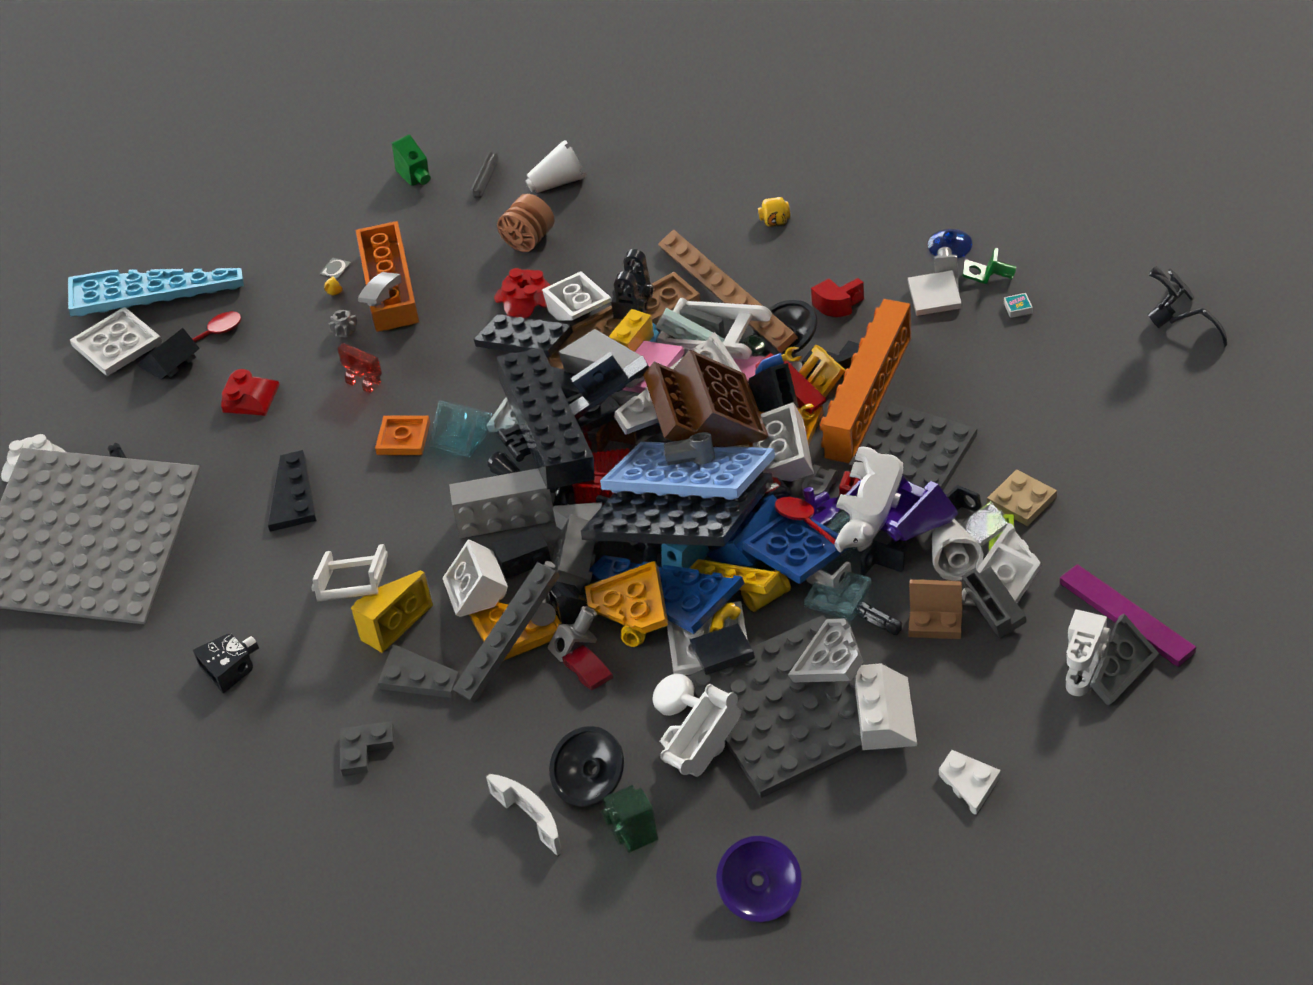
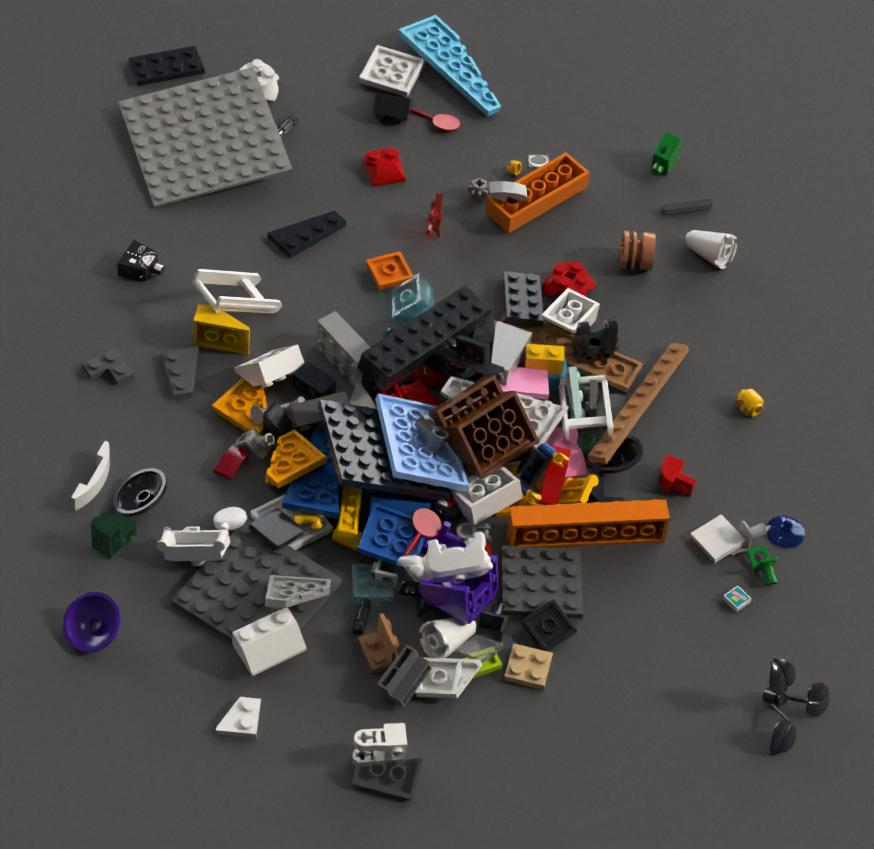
camera: 50 degrees right, 5 degrees up
(506, 632) = (228, 400): dark grey plate -> none
(980, 459) = (549, 626): none -> black tile
(1113, 604) = (443, 769): magenta tile -> none

